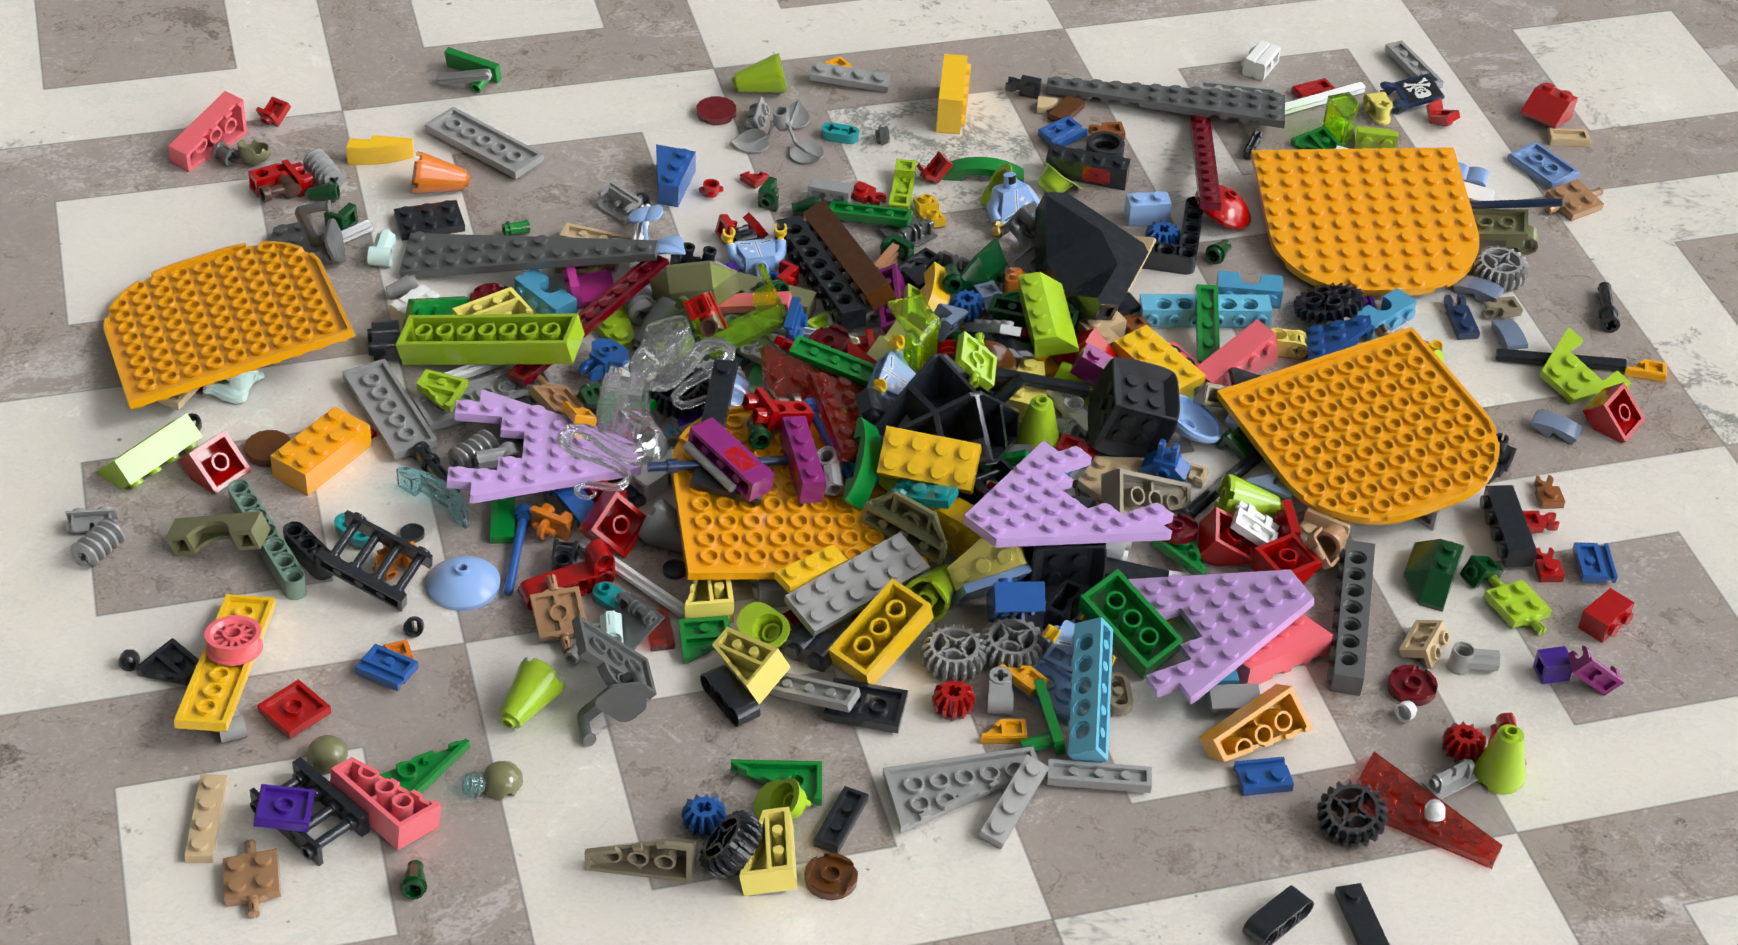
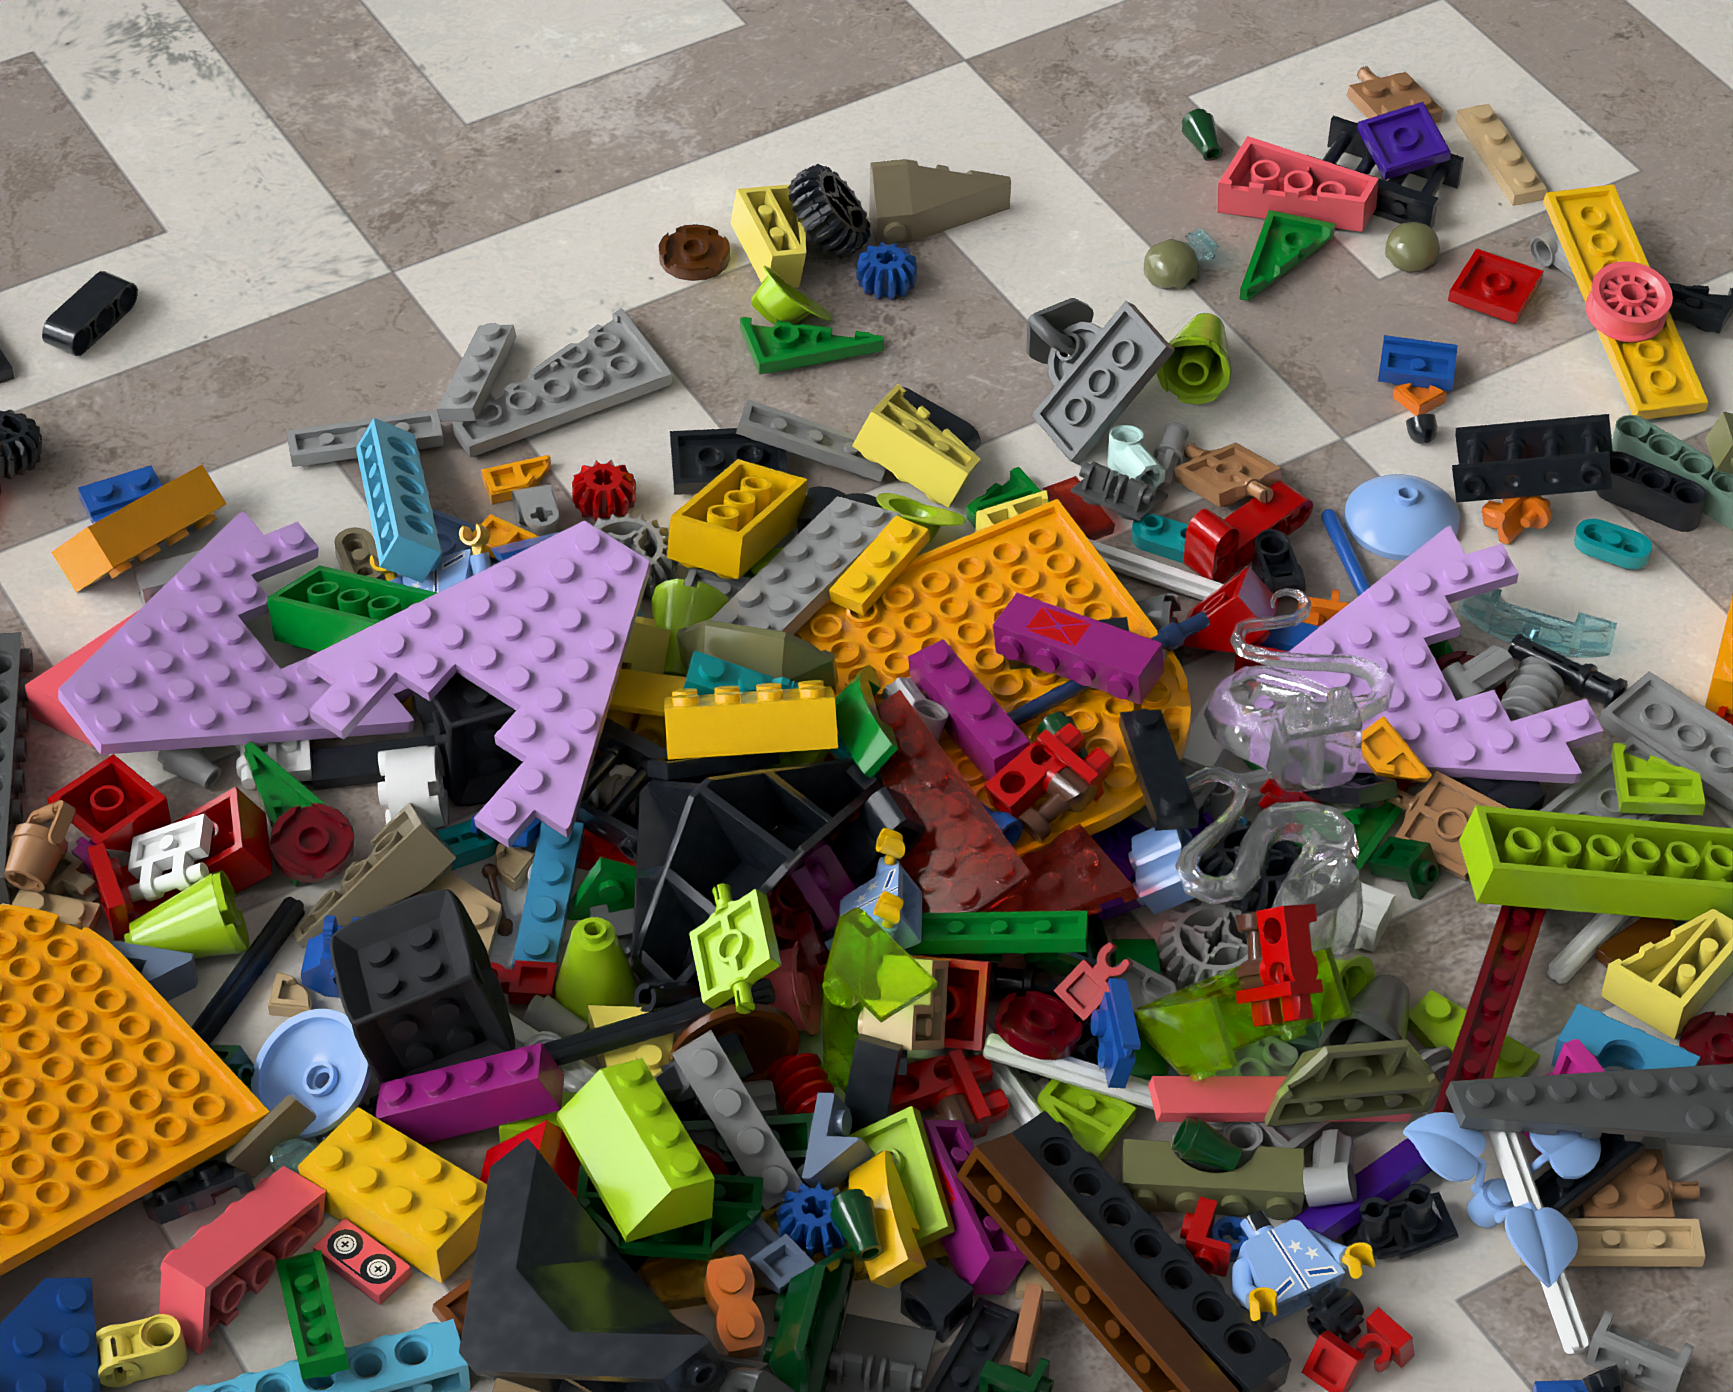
camera: 165 degrees right, 5 degrees up
(412, 532) = (1532, 574): black piece -> none
(602, 358) = (1426, 932): blue hinge -> none
(840, 820) = (707, 319): black tile -> none
(1053, 737) = (450, 479): green piece -> none

